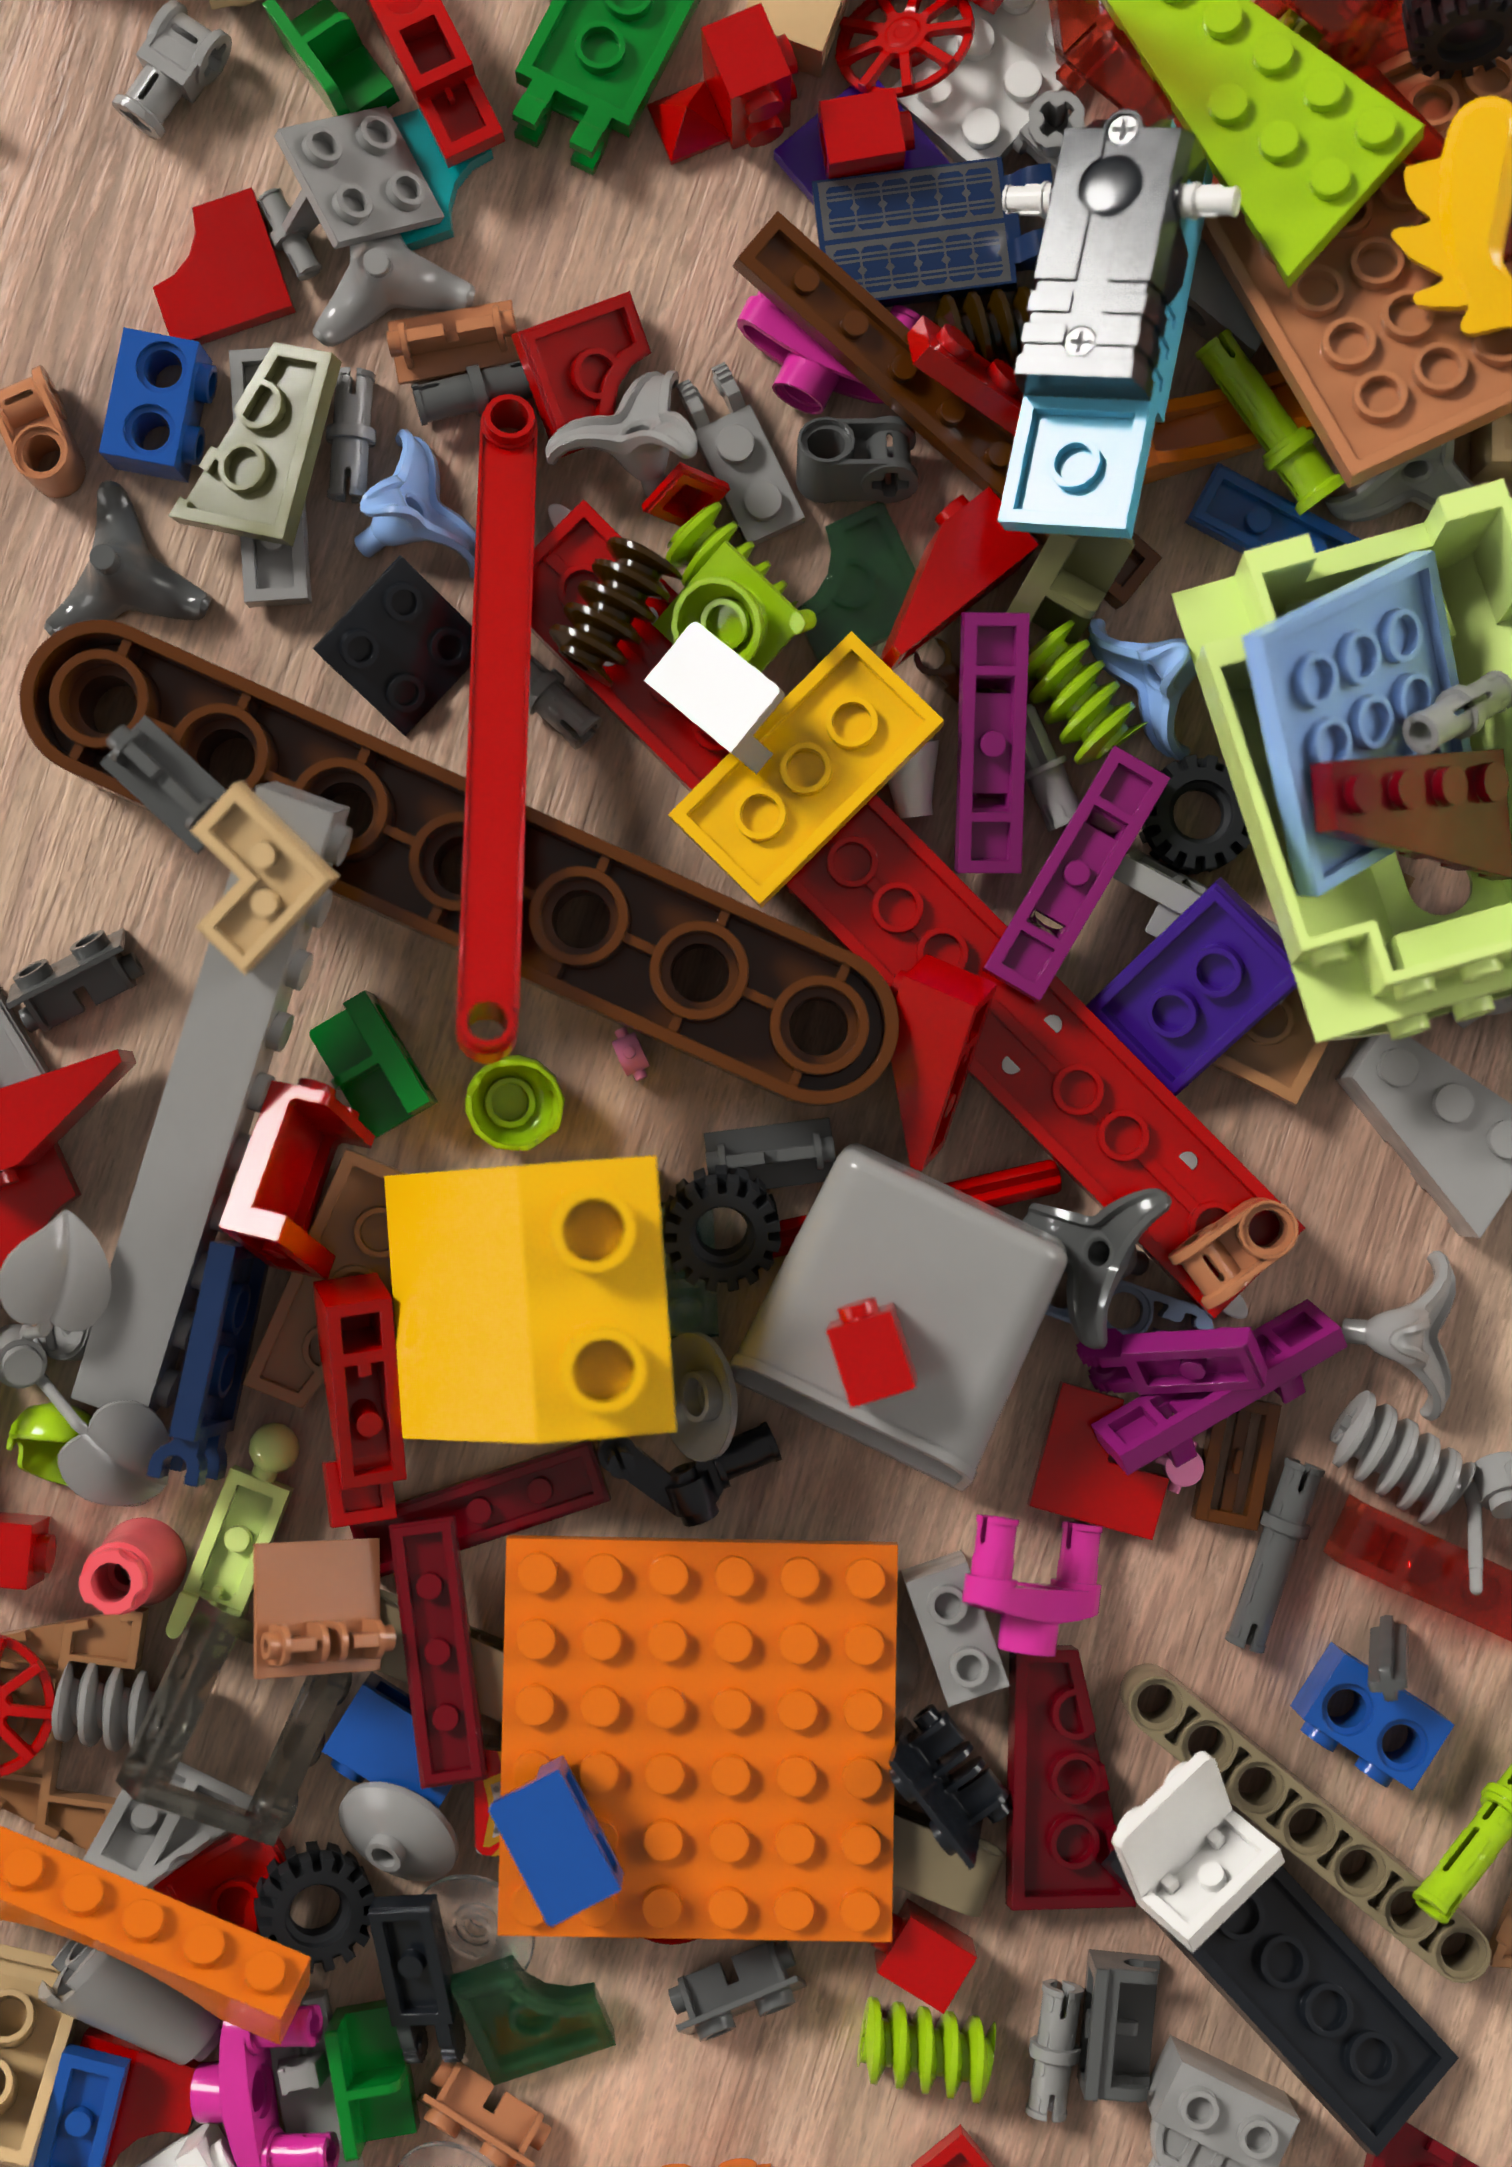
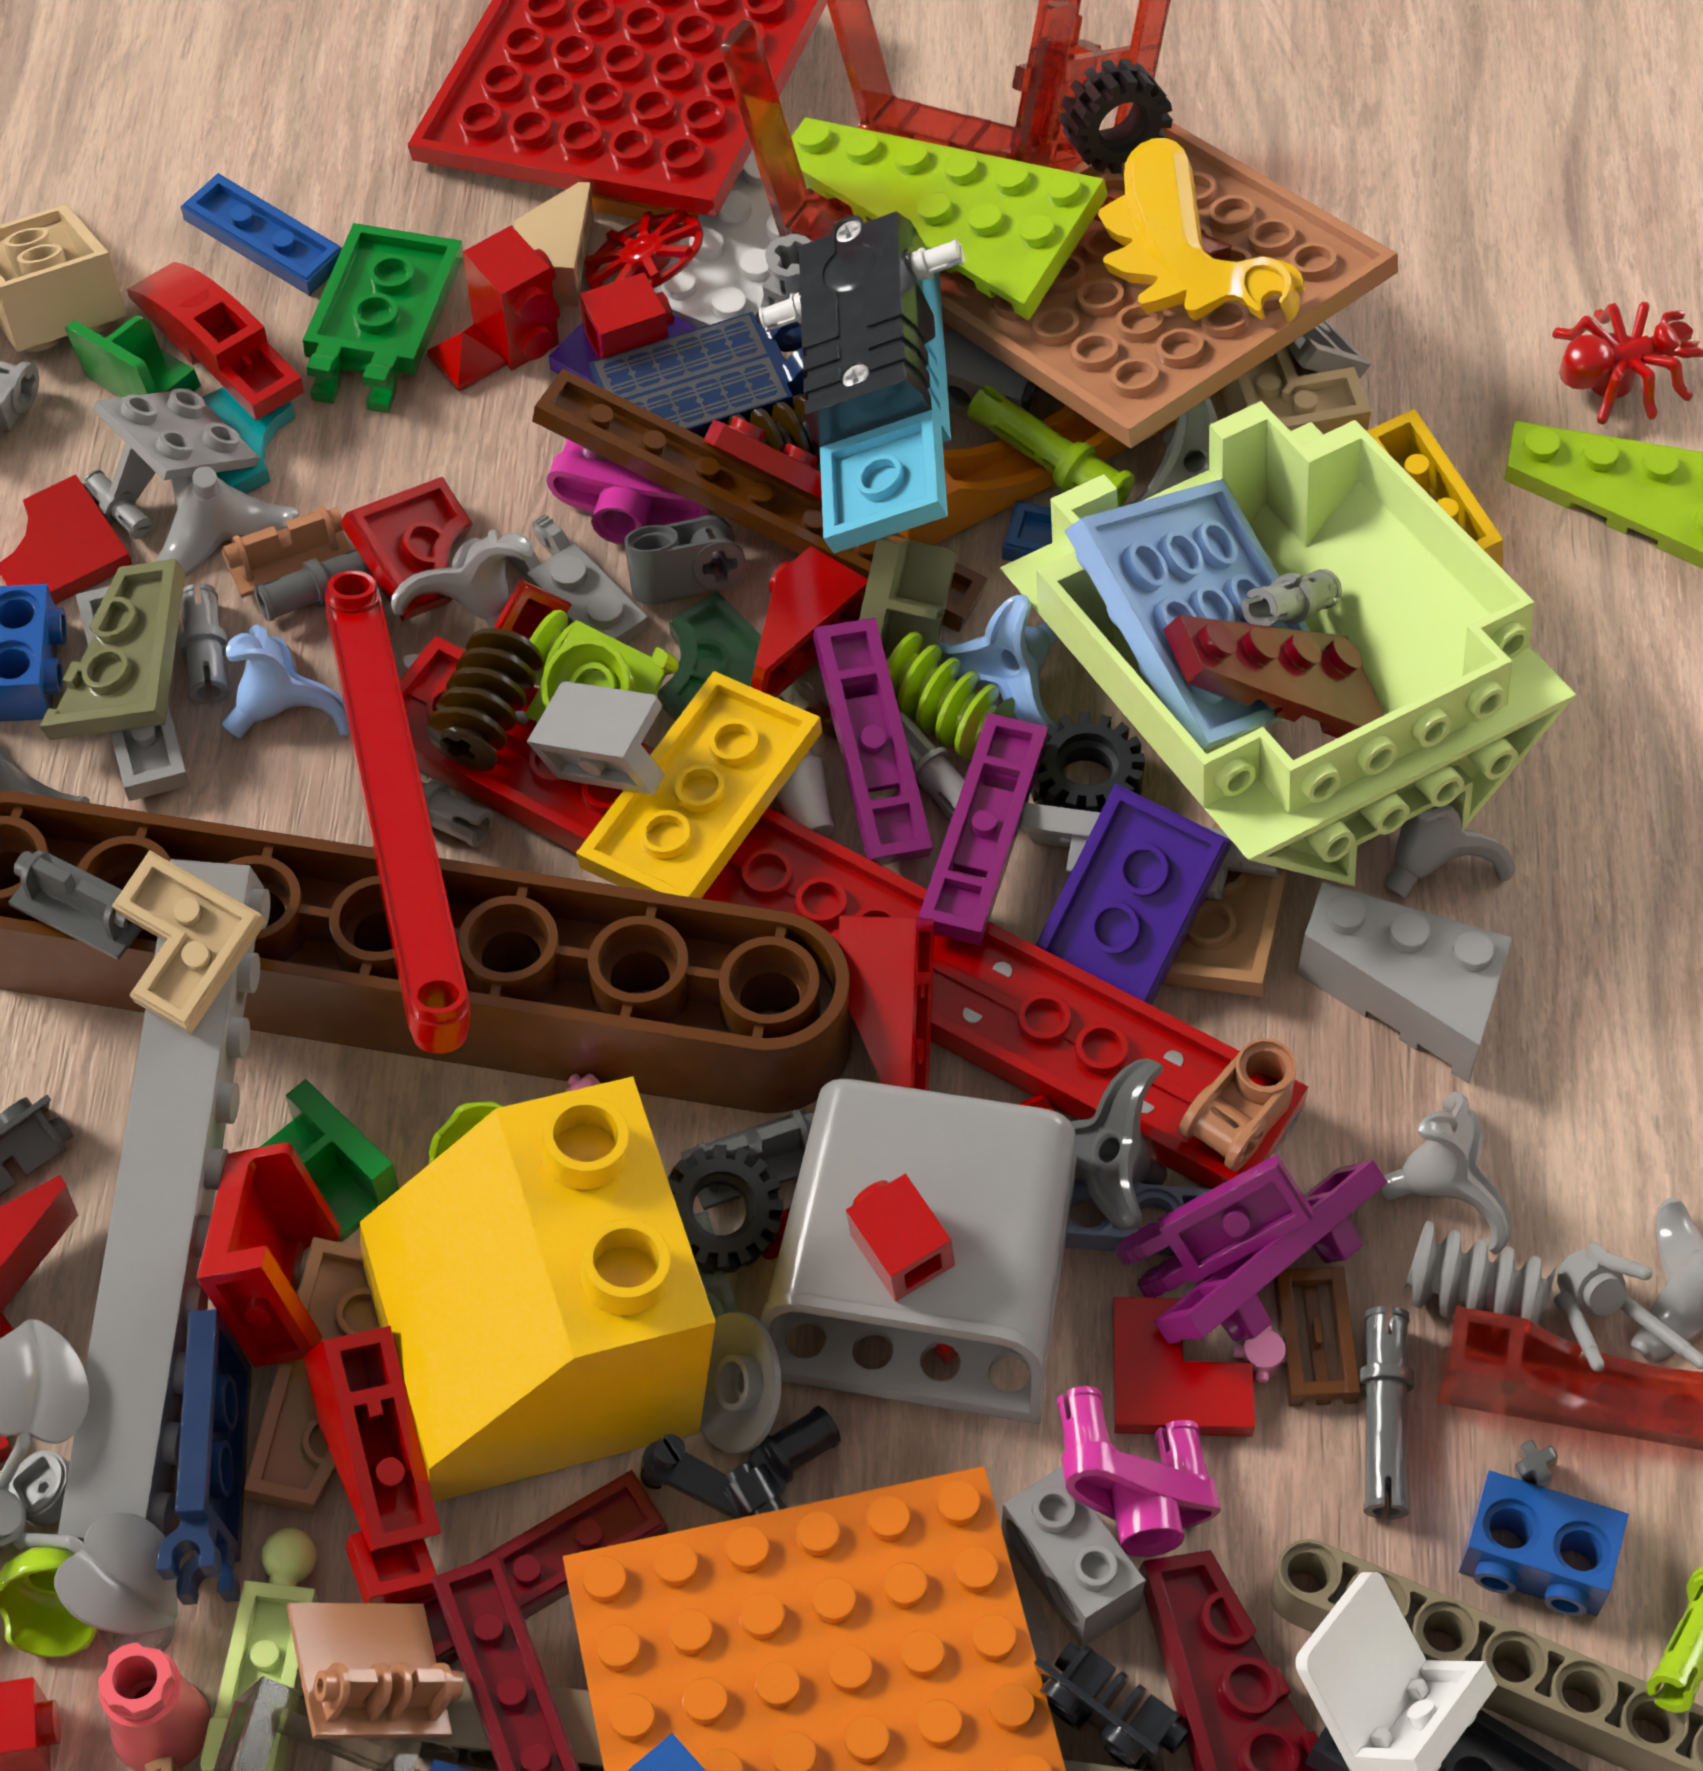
camera: 20 degrees left, 30 degrees down
(400, 645) = (284, 785): black hinge -> none

